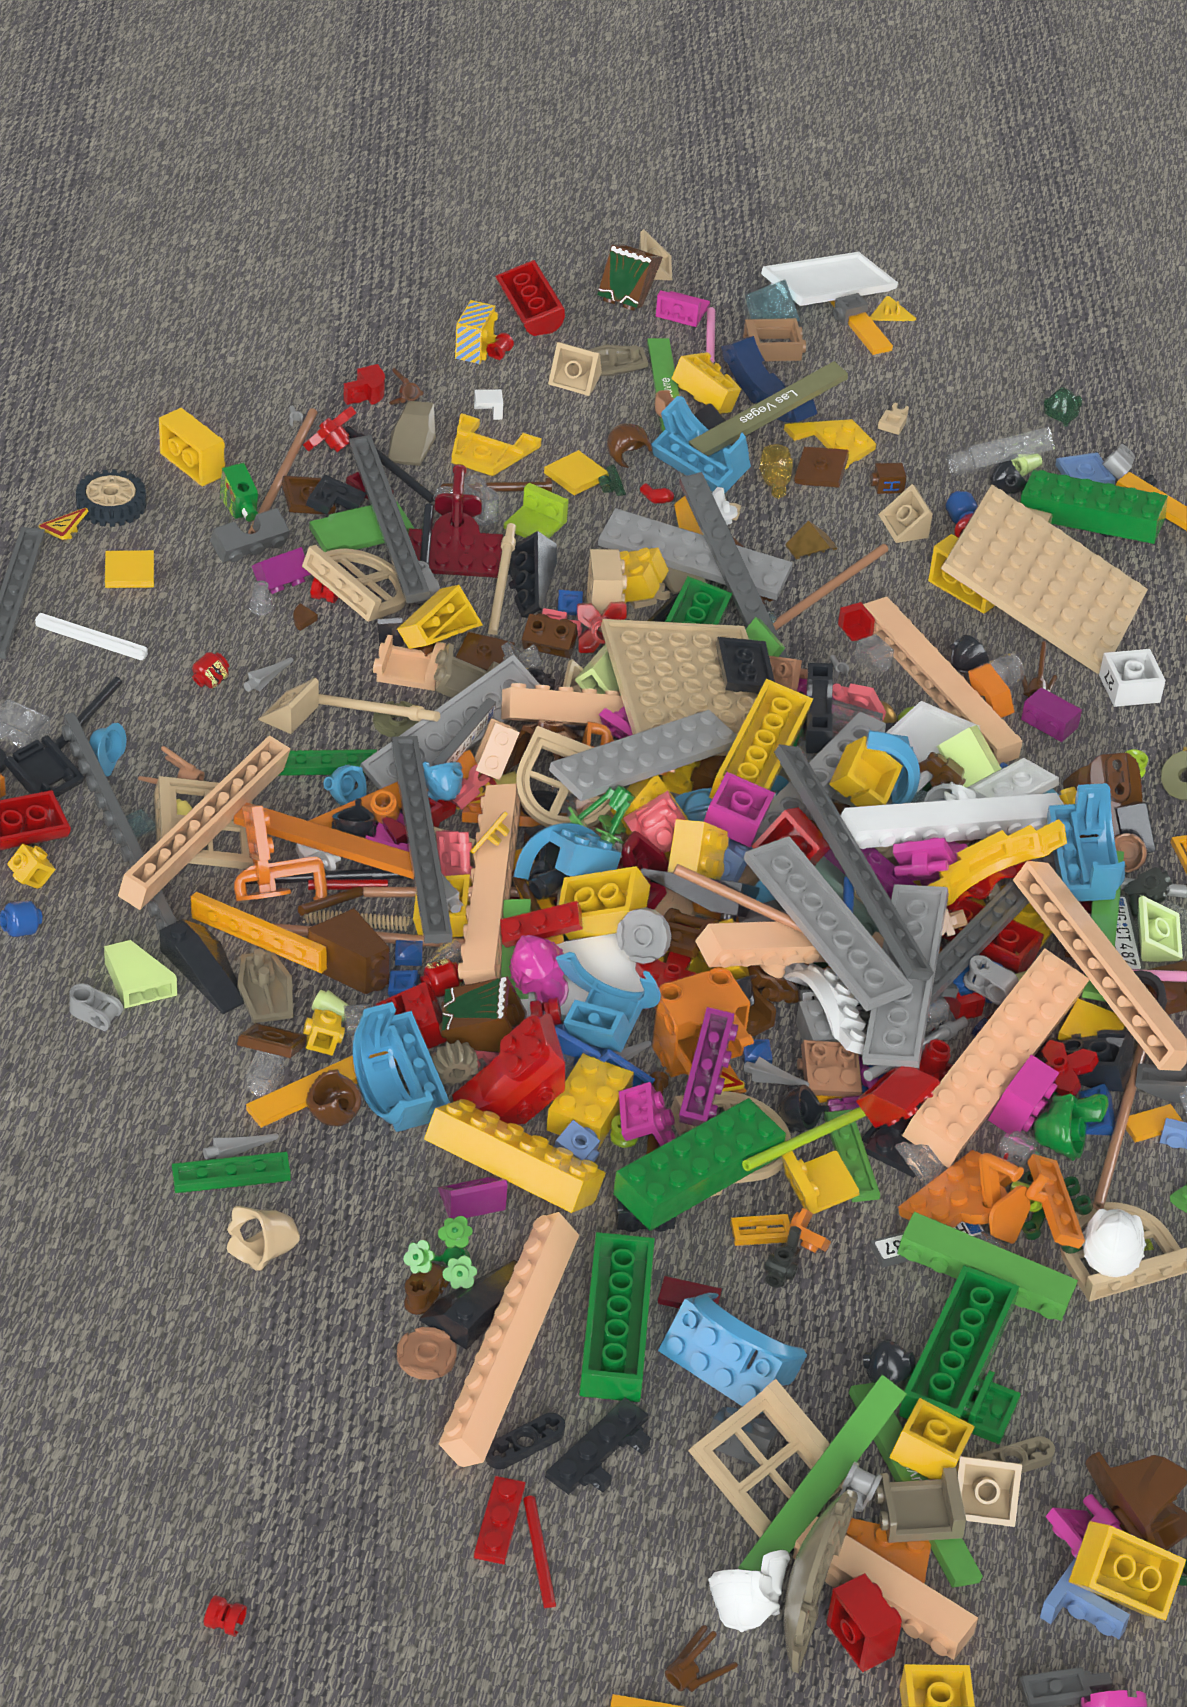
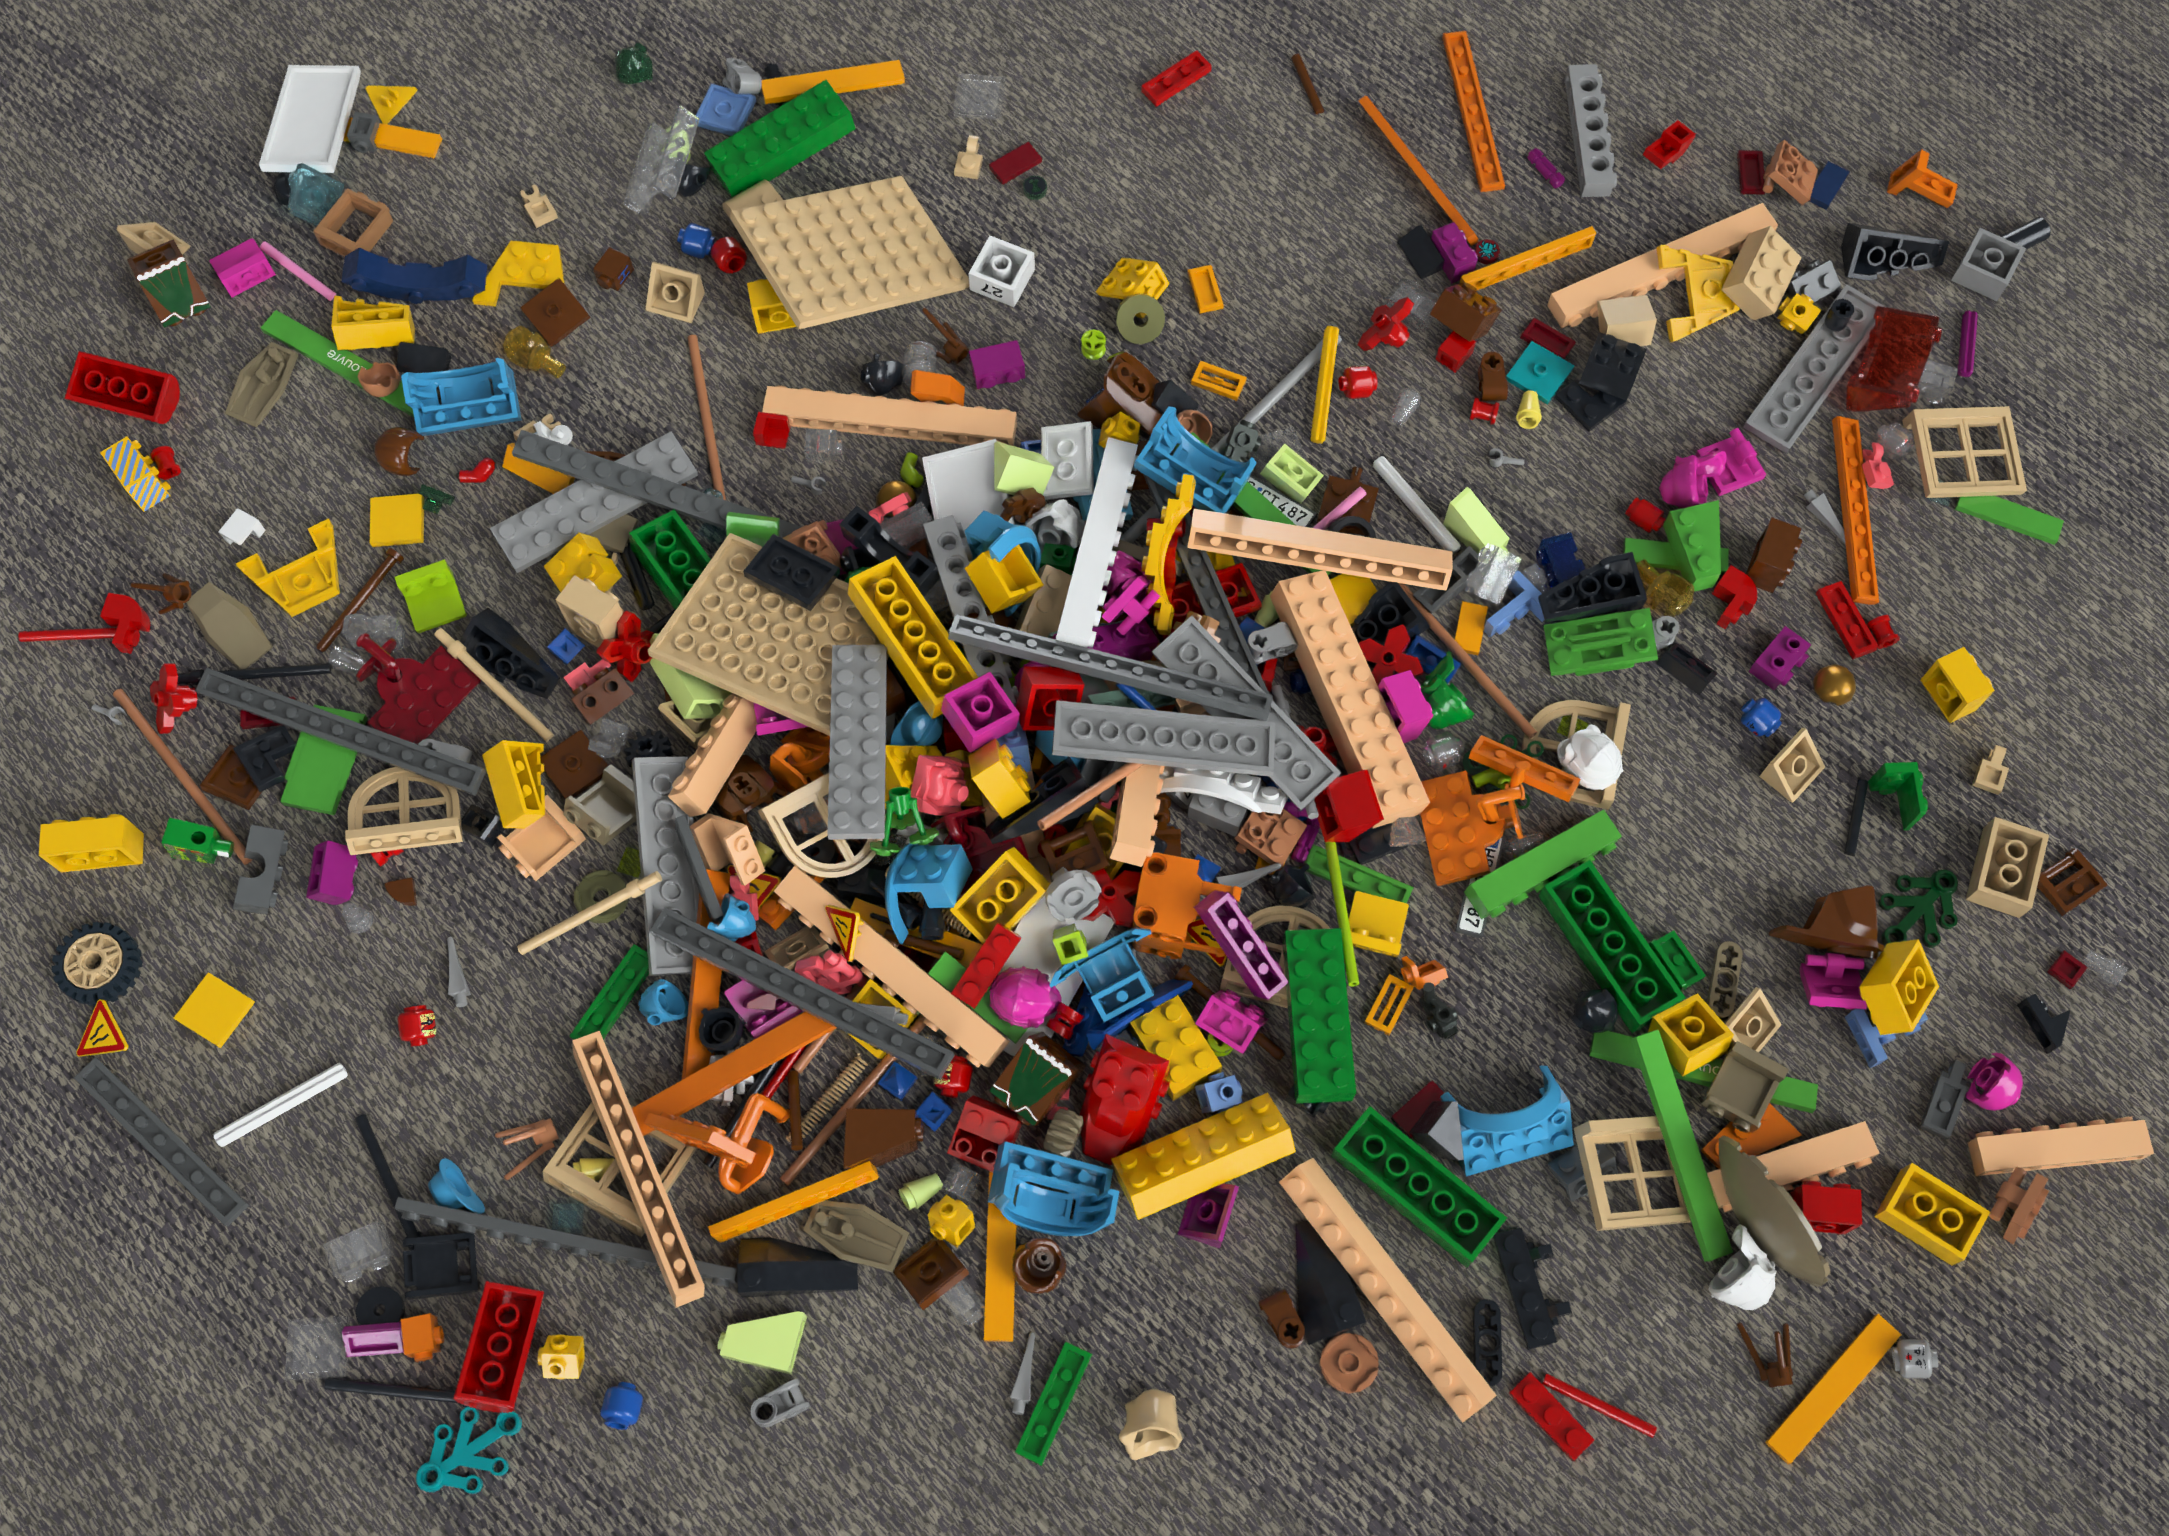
camera: 50 degrees left, 25 degrees up
(293, 707) = (518, 983): tan slope -> none
(328, 367) = (71, 634): none -> red bar
(384, 805) = (740, 1001): orange brick -> none
(426, 533) = (392, 714): black bar -> none
(456, 1256) = (1277, 1272): plant -> none
(575, 369) = (258, 424): tan slope -> none
(613, 969) = (1070, 944): none -> lime brick
(676, 1288) = (1440, 1130): none -> slope
(769, 409) = (462, 306): olive tile -> none
(809, 540) = (645, 392): pearl gold slope -> none
(862, 1483) = (1711, 1123): light grey piece -> none

